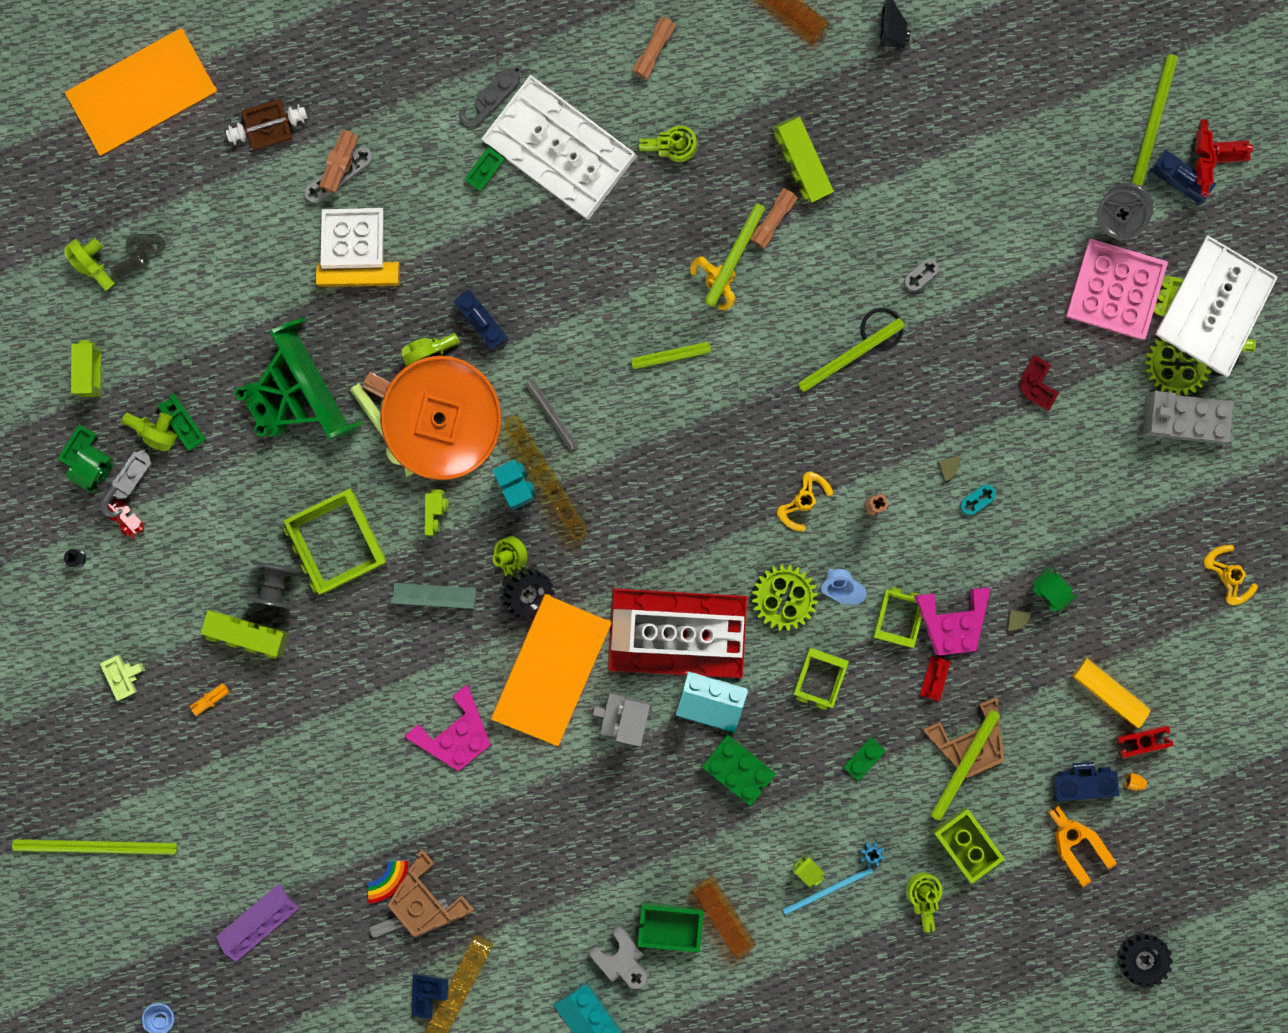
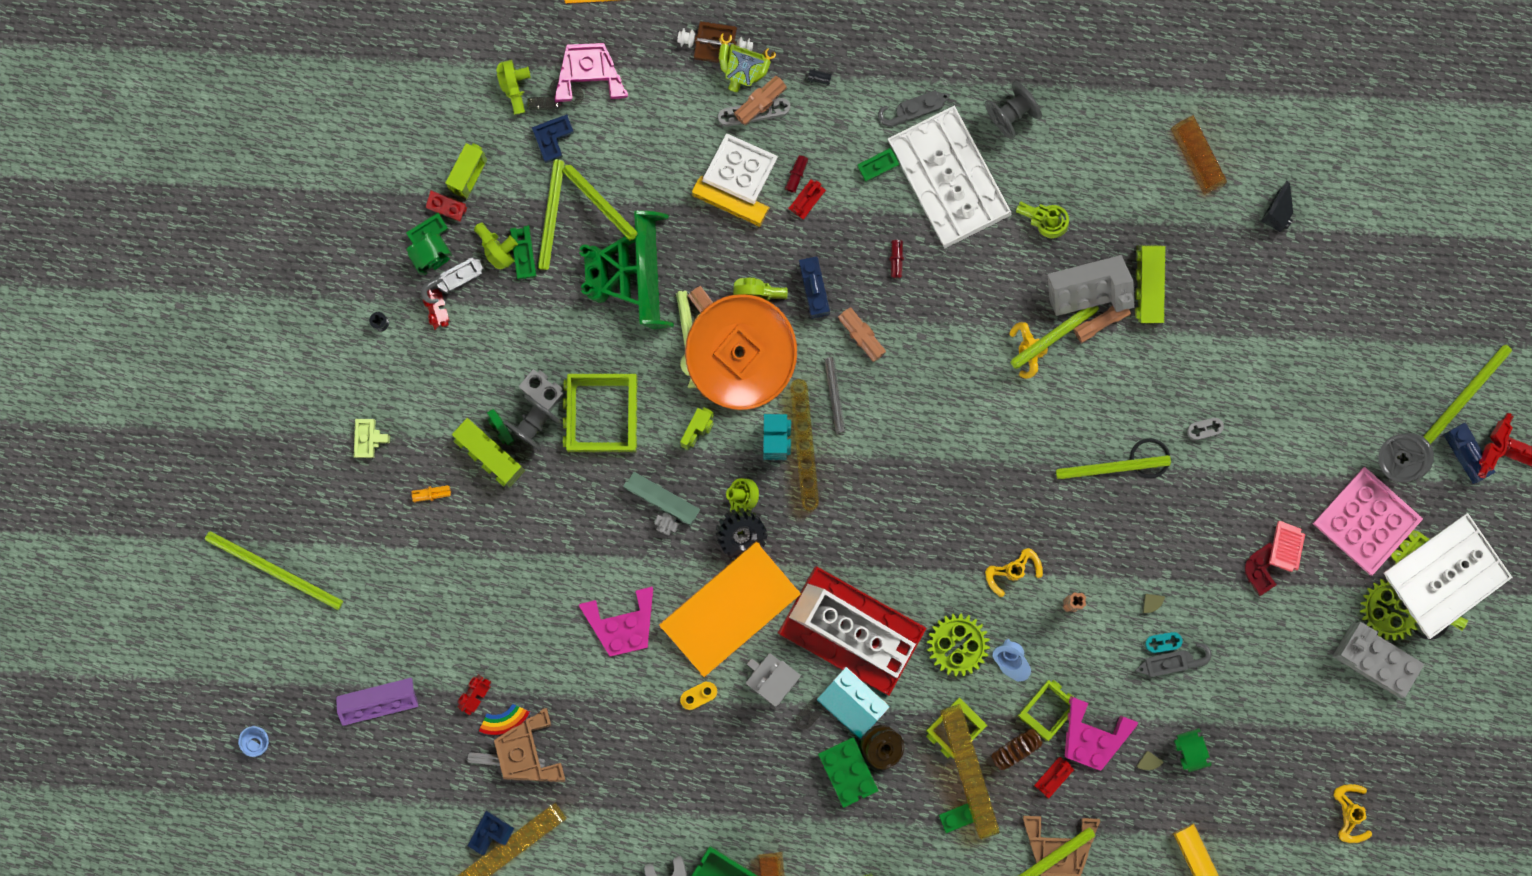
camera: 30 degrees right, 5 degrees down
(83, 413) = (446, 206): none -> red hinge
(148, 293) = (547, 136): none -> dark blue plate
(152, 206) = (584, 64): none -> wing
(190, 372) = (551, 214): none -> lime axle
(231, 337) = (600, 202): none -> lime axle
(237, 599) = (496, 421): none -> green plate
(265, 552) = (539, 393): none -> light grey brick
(304, 134) = (742, 65): none -> lime torso
(344, 878) = (469, 699): none -> red hinge
(385, 109) = (820, 77): none -> black pin
(409, 216) = (796, 174): none -> dark red axle
(432, 236) = (807, 199): none -> red hinge
(450, 618) = (666, 523): none -> light grey gear
(547, 253) = (896, 258): none -> dark red axle
(549, 343) = (862, 334): none -> nougat piece
(561, 766) = (698, 694): none -> yellow plate
(589, 52) = (1013, 109): none -> dark grey piece
(647, 60) = (1058, 140): nougat axle -> none
(670, 355) = (960, 394): lime axle -> none
(748, 189) = (1092, 286): none -> light grey hinge
(755, 720) = (879, 756): none -> dark brown wheel
(853, 713) = (969, 771): none -> clear yellow beam
(887, 670) = (1017, 749): none -> reddish brown gear
(996, 514) = (1173, 662): none -> dark grey plate
(1052, 351) = (1287, 547): none -> coral window

